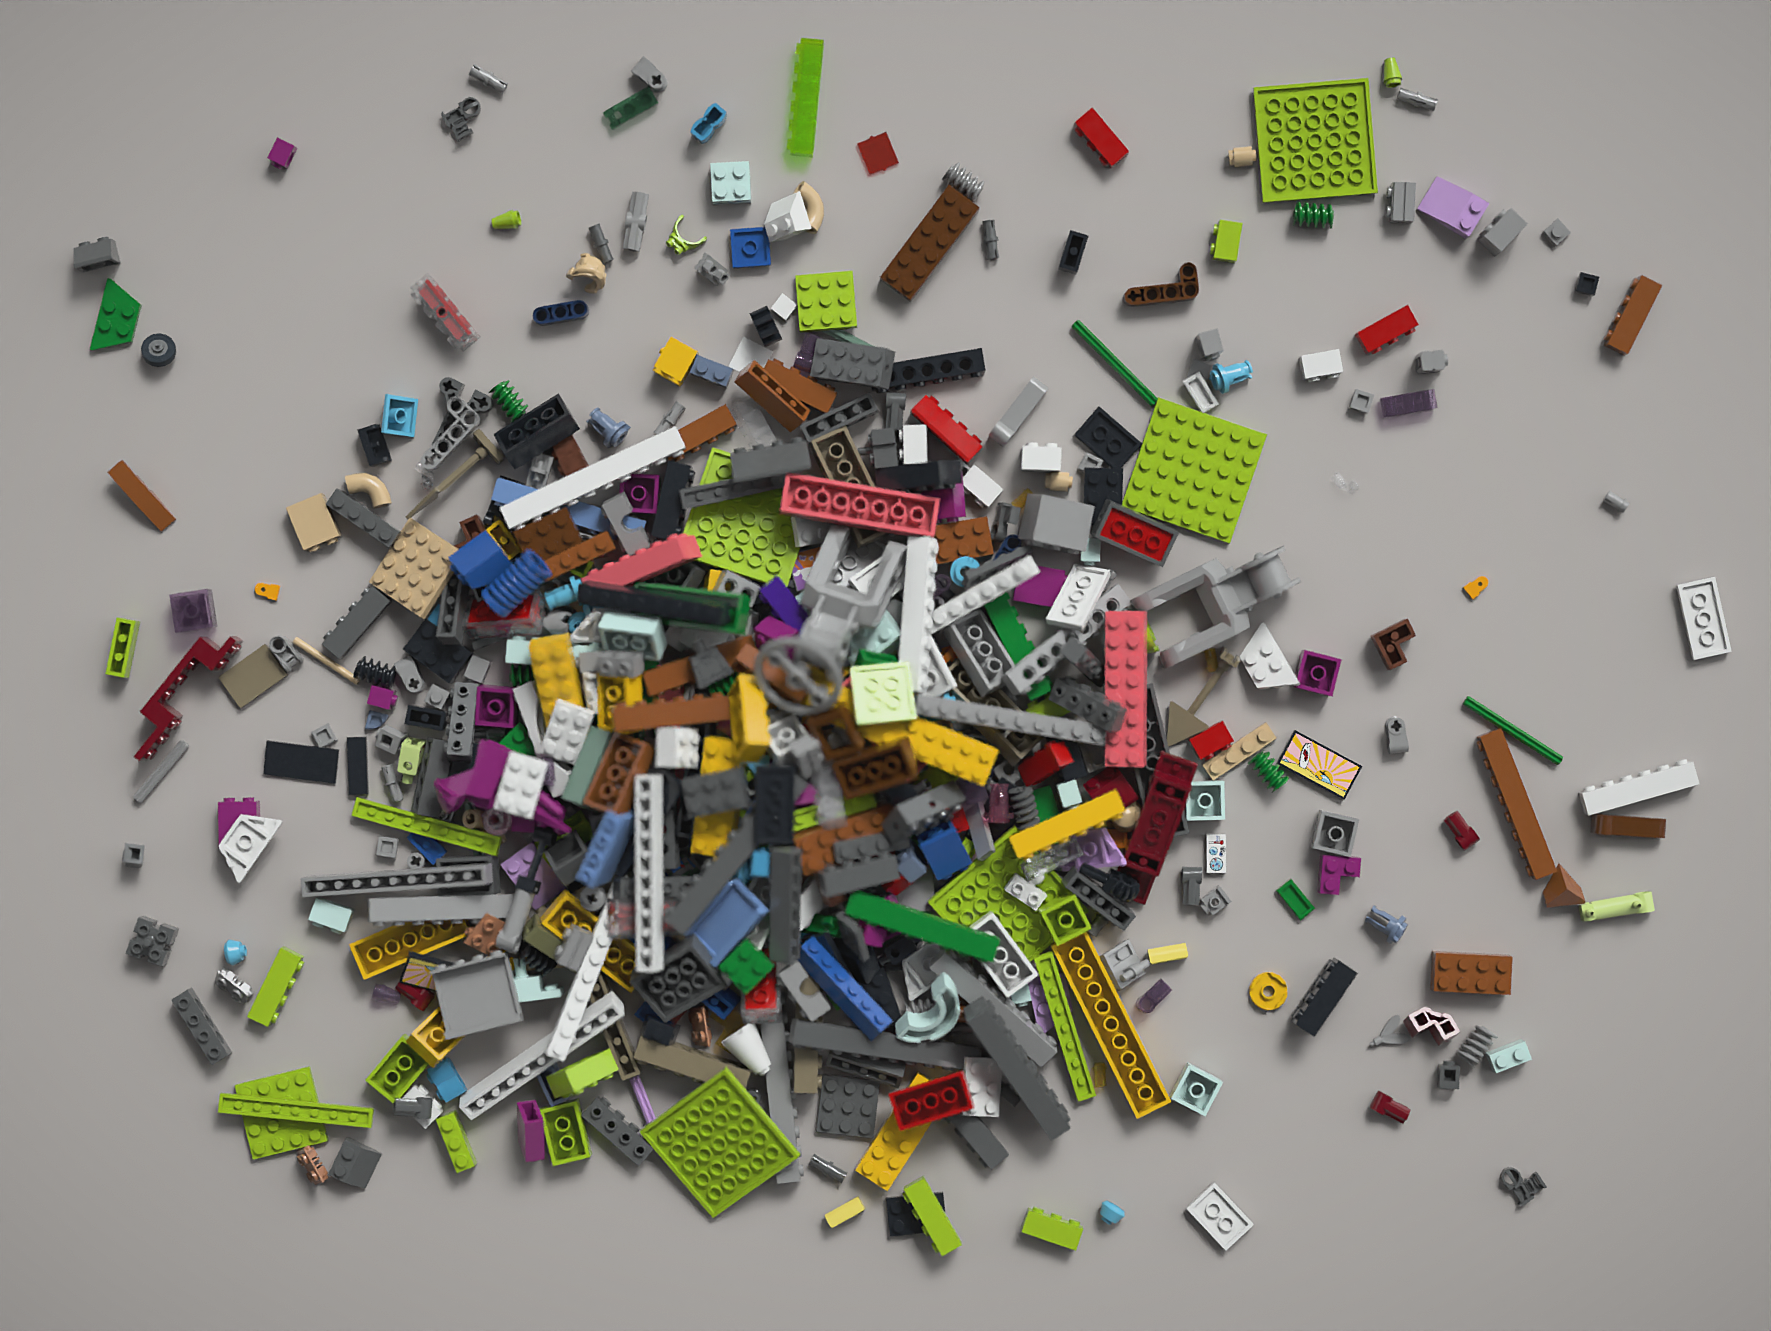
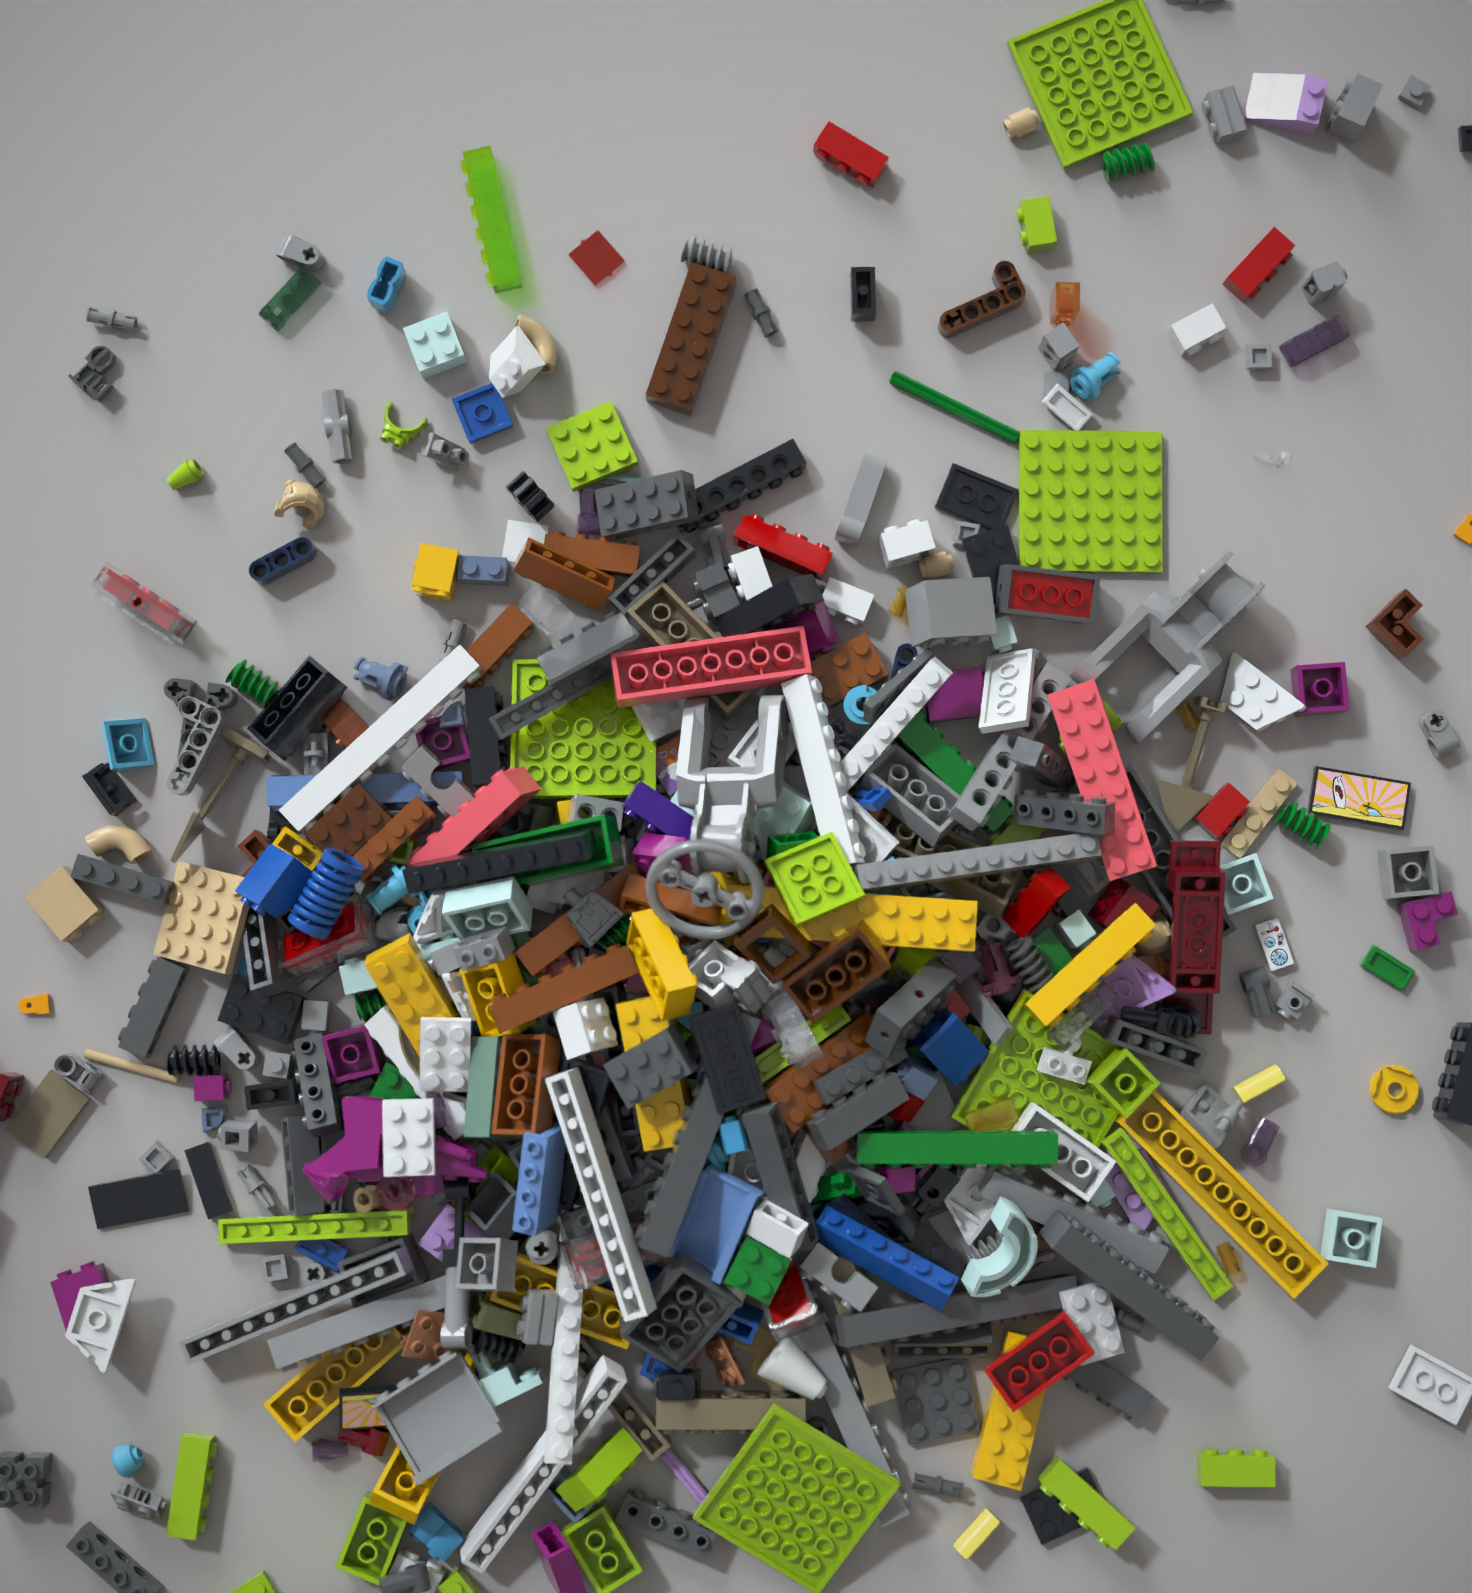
camera: 20 degrees left, 5 degrees down
(331, 915) = (232, 1374): light aqua brick -> none
(411, 751) = (268, 1141): yellowish green torso -> none
(427, 476) = (184, 805): clear arm -> none
(548, 896) = (486, 1264): none -> light grey brick
(653, 477) = (453, 716): none -> sand blue tile
(770, 941) = (777, 1228): none -> white brick
(784, 306) = (544, 469): white tile -> none
(947, 646) = (873, 799): none -> blue plate
(957, 911) = (992, 1116): none -> clear yellow plate
(1005, 514) = (886, 623): dark grey piece -> none
(1098, 924) = (1163, 1075): dark grey pin -> none
(1111, 1212) = (1301, 1425): medium azure cone -> none
(1225, 312) = (1064, 303): none -> clear orange brick

